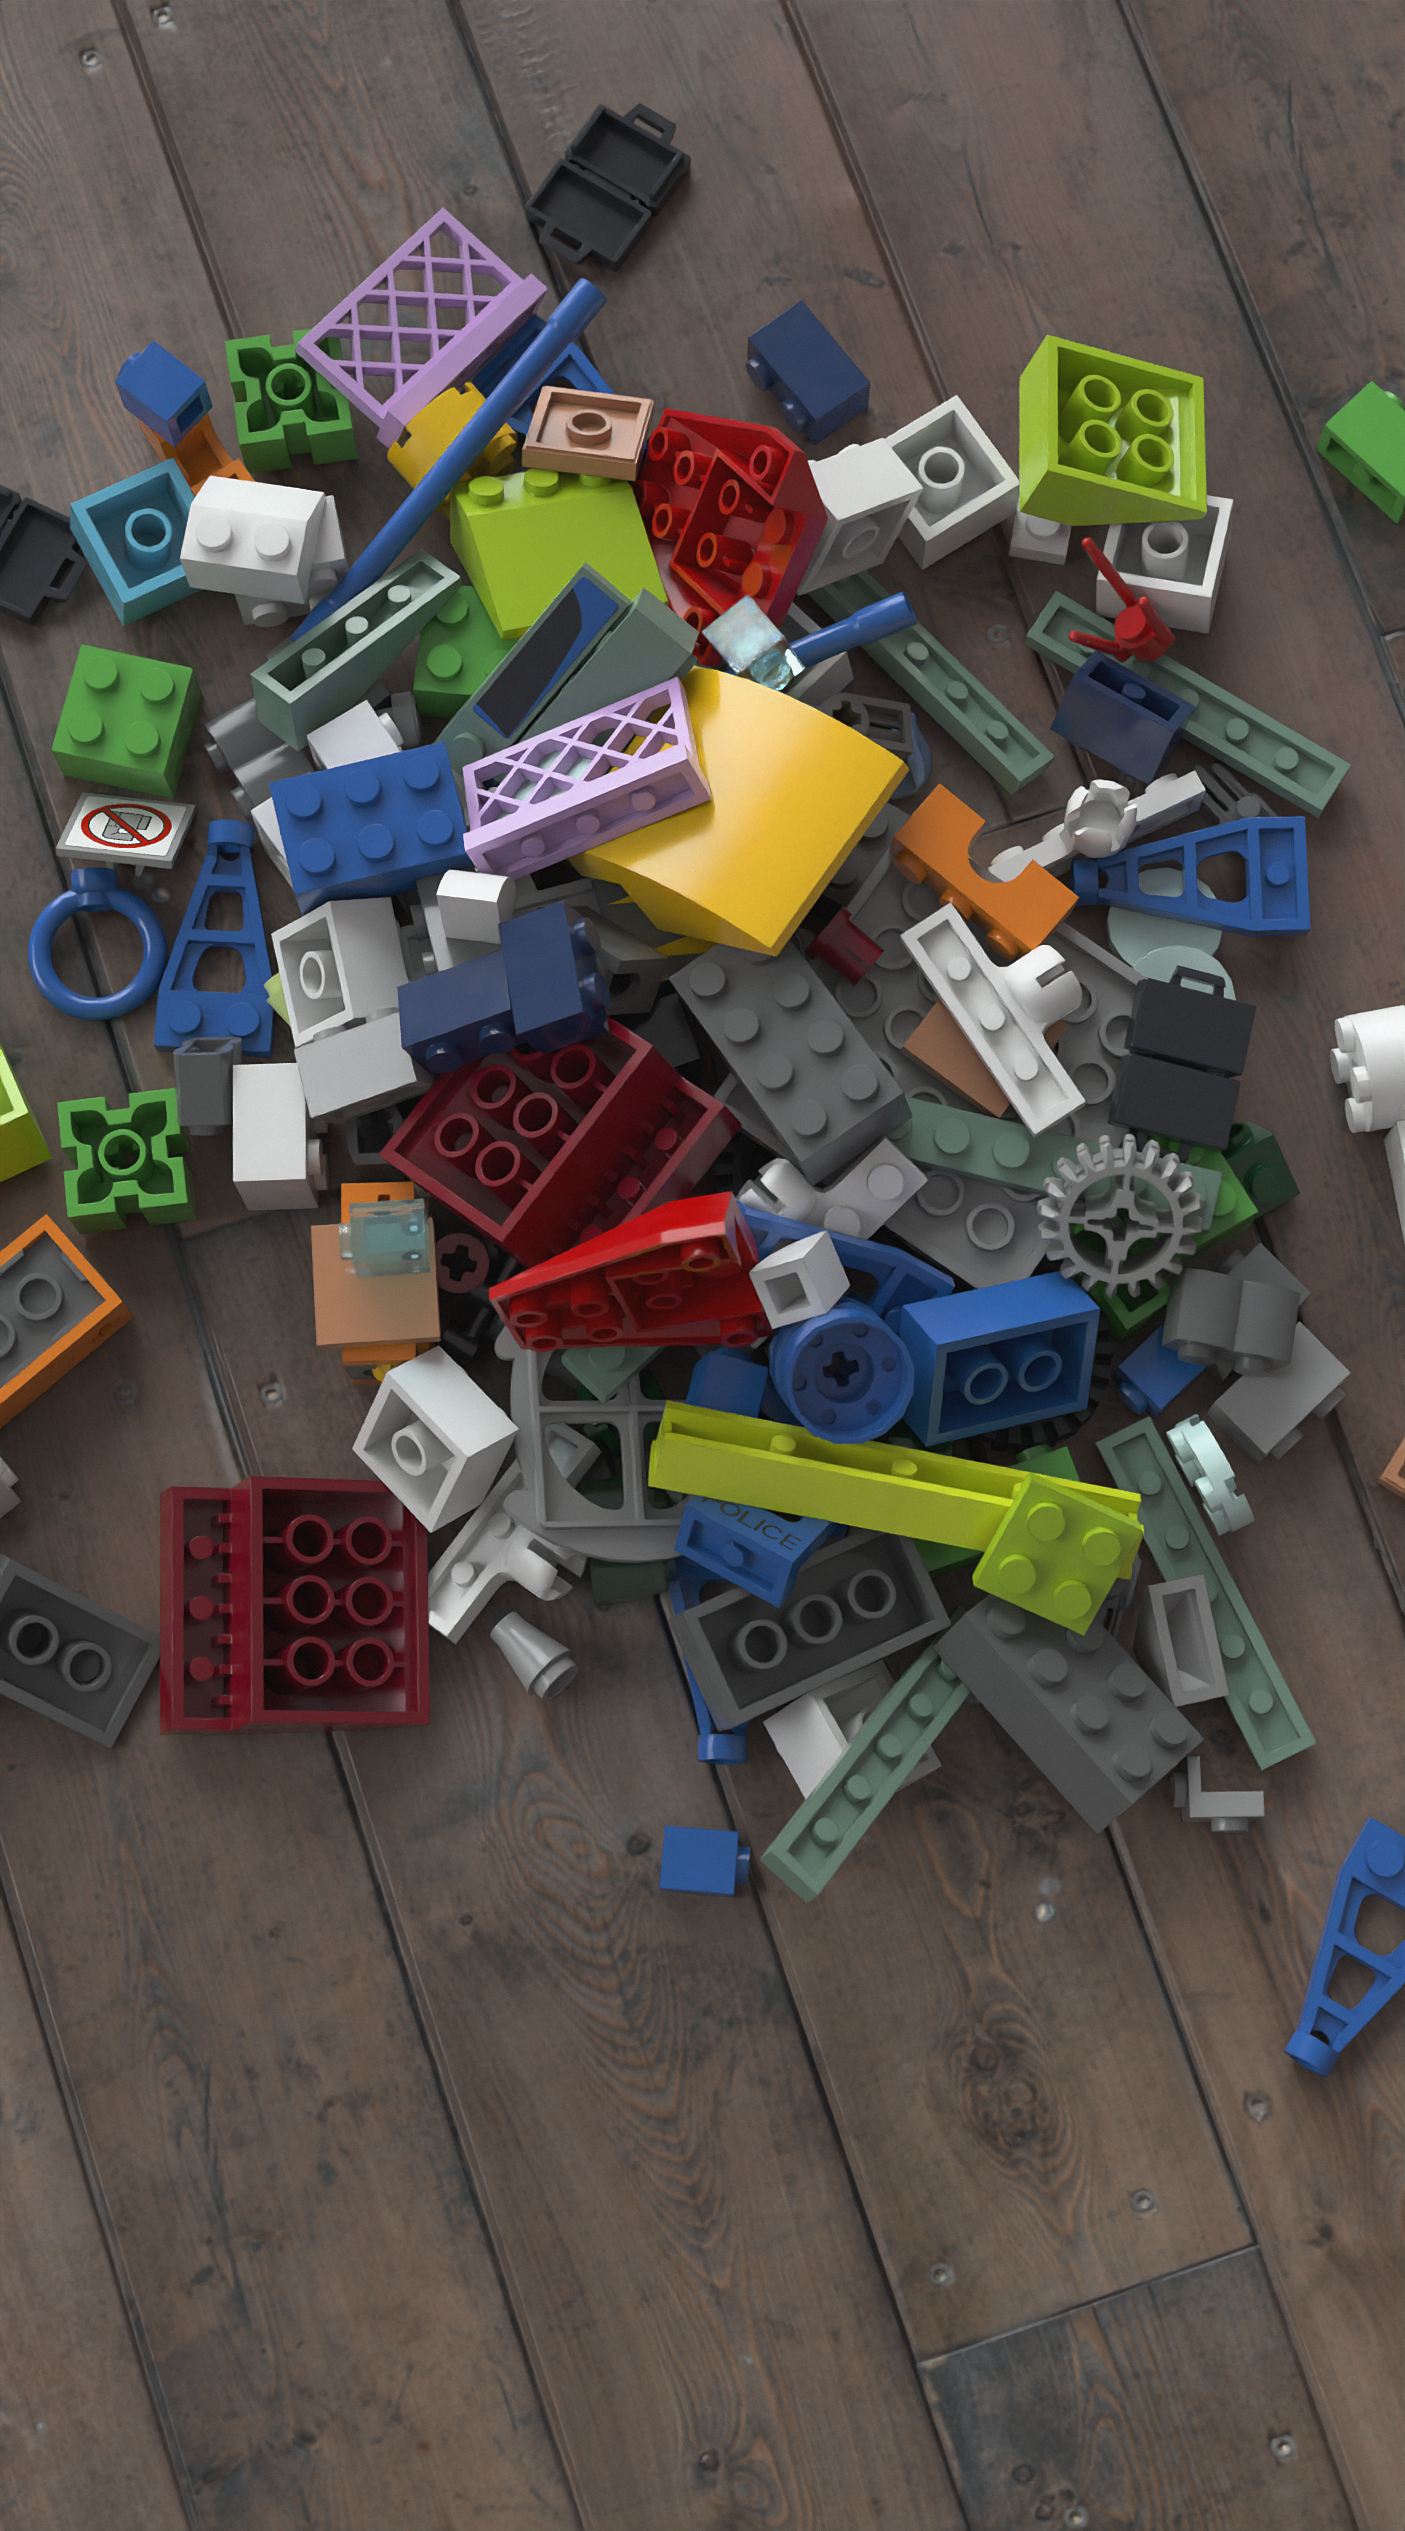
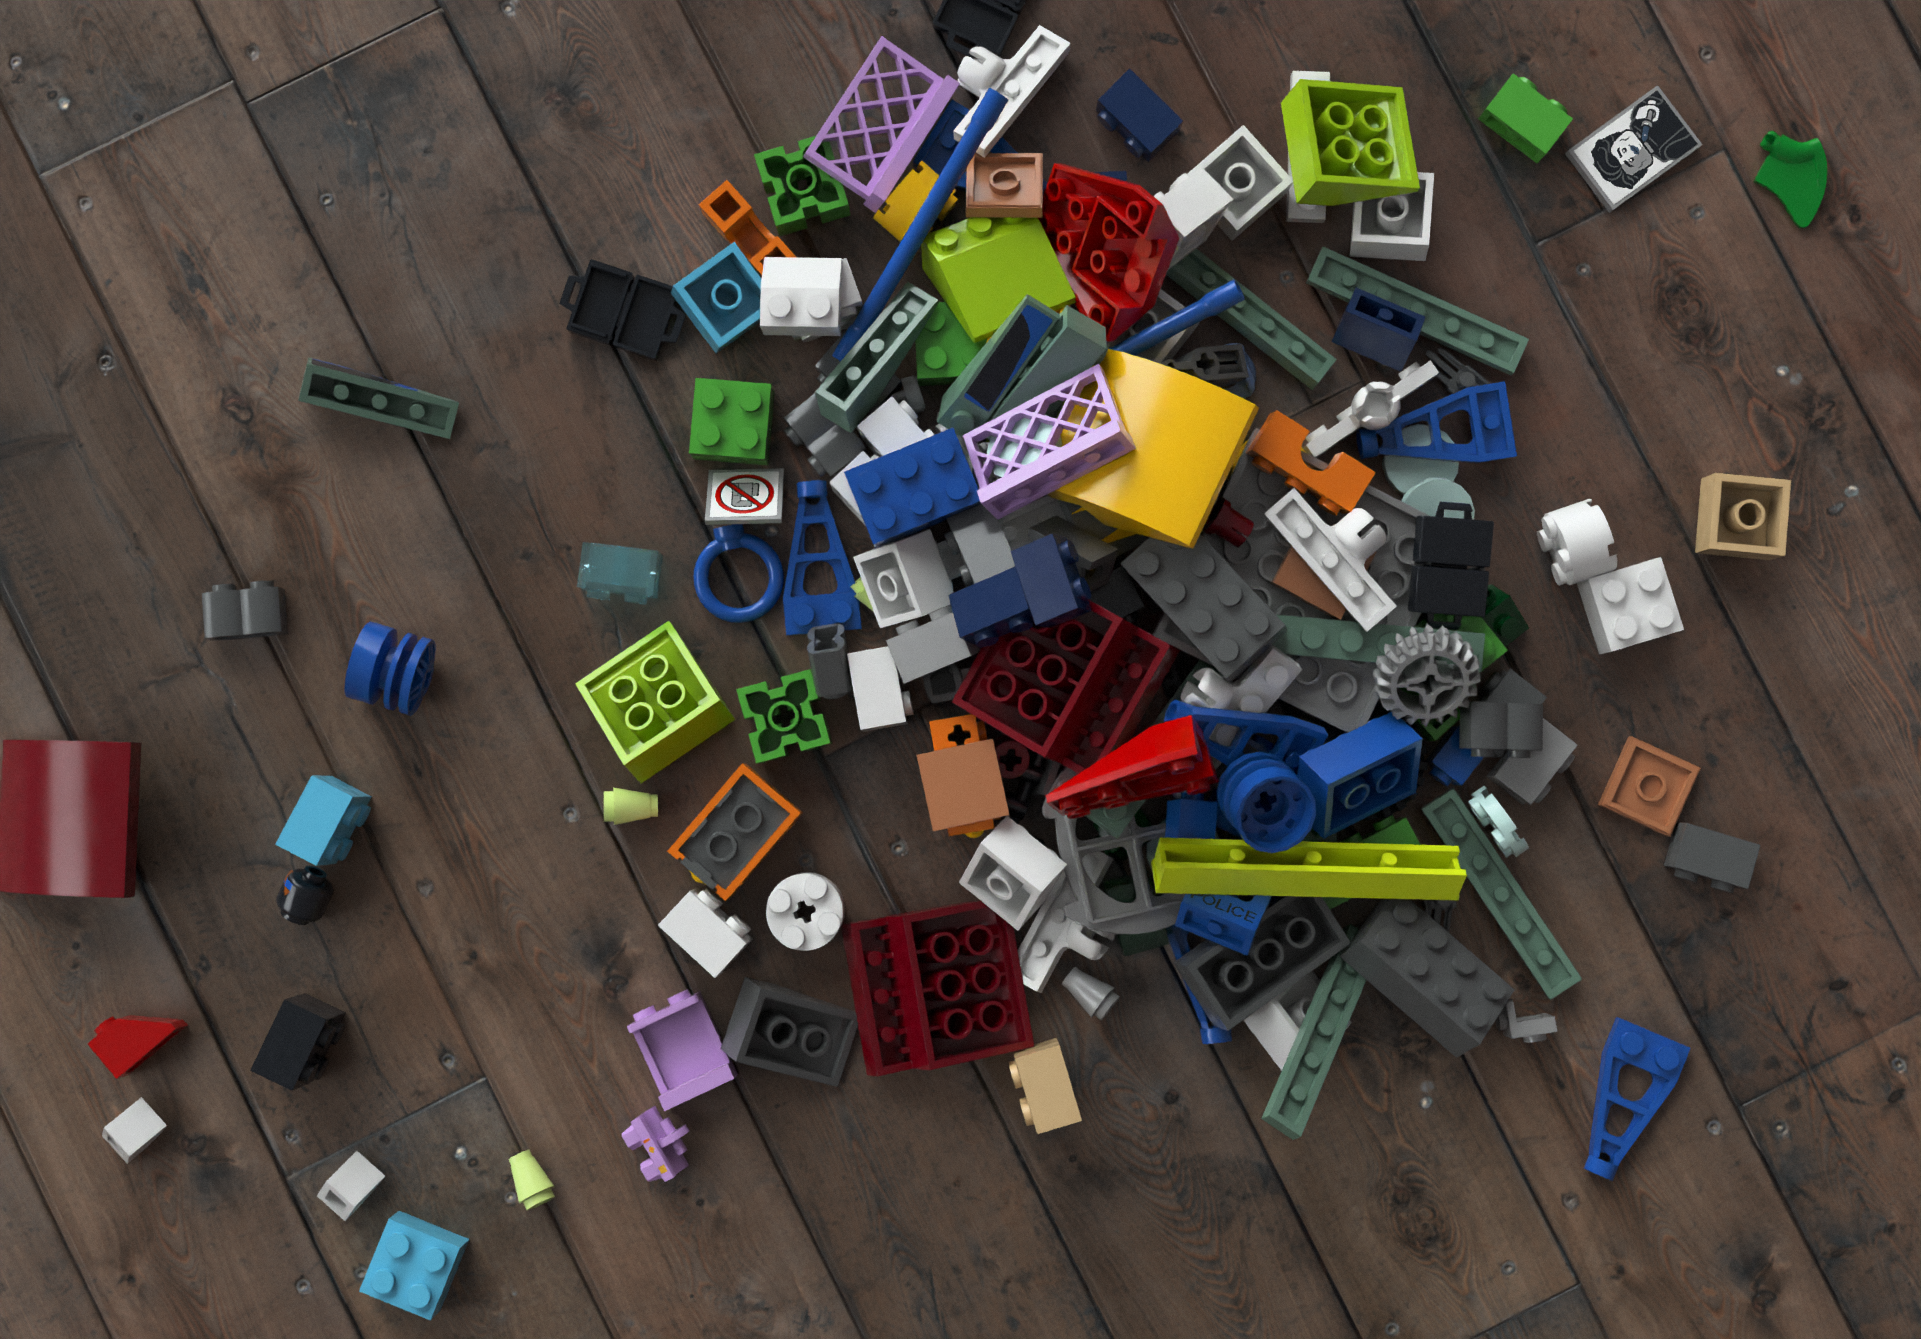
camera: 10 degrees left, 10 degrees up
(78, 1443) = (796, 931): none -> white brick
(163, 392) = (721, 200): blue brick -> none
(387, 1238) = (968, 760): clear light blue brick -> none
(435, 1783) = (1047, 1086): none -> tan brick
(475, 904) = (992, 535): white brick -> none
(635, 296) = (1014, 78): none -> white plate
(702, 1862) = (1214, 1106): blue brick -> none
(753, 646) = (1141, 331): clear light blue brick -> none
(800, 1280) = (1234, 751): white brick -> none
(1056, 1553) = (1414, 896): lime plate -> none
(1137, 628) = (1382, 269): red plant -> none
(1179, 1641) = (1491, 930): light grey slope -> none

